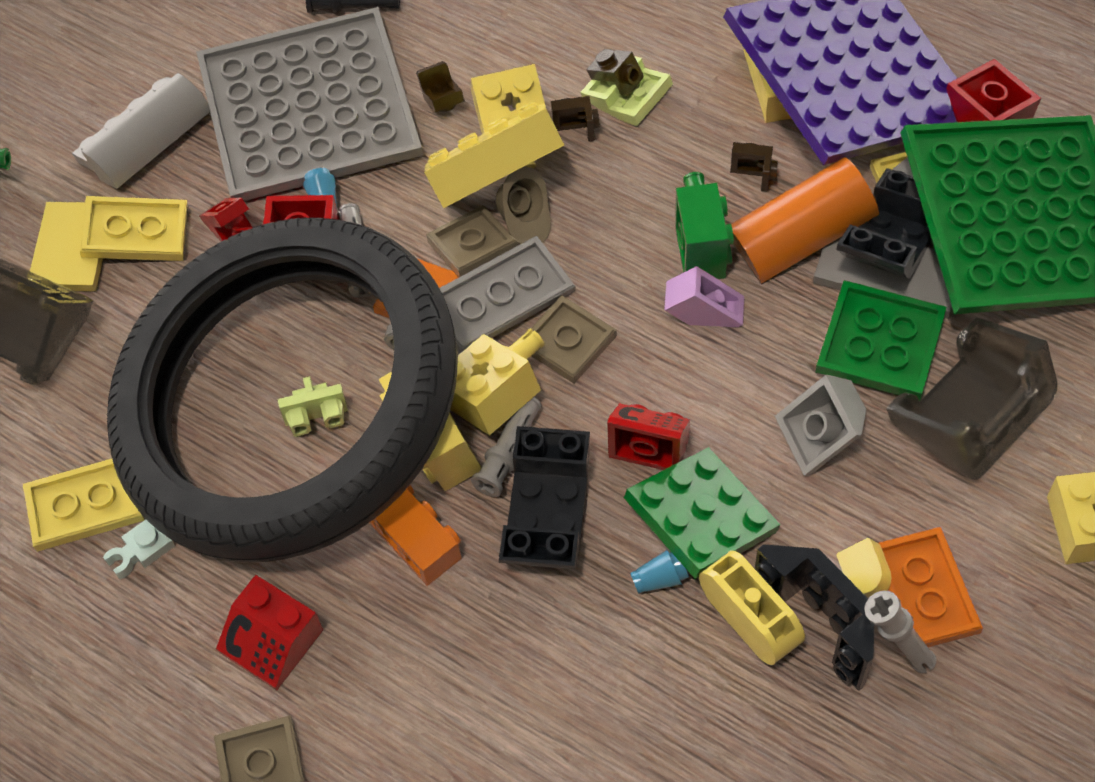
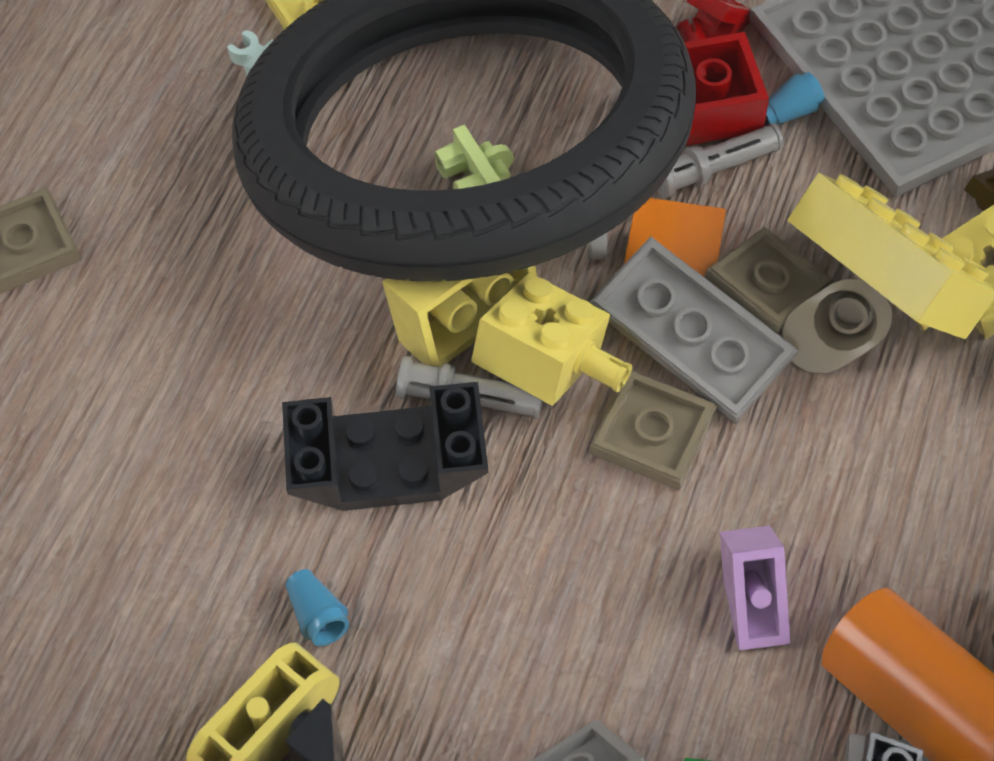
camera: 75 degrees right, 0 degrees up
(268, 632) = (178, 204): red slope -> none
(418, 536) = (321, 317): orange brick -> none
(647, 436) = (512, 547): red slope -> none
(701, 226) = (868, 548): green brick -> none
(701, 511) = (409, 640): plate -> none

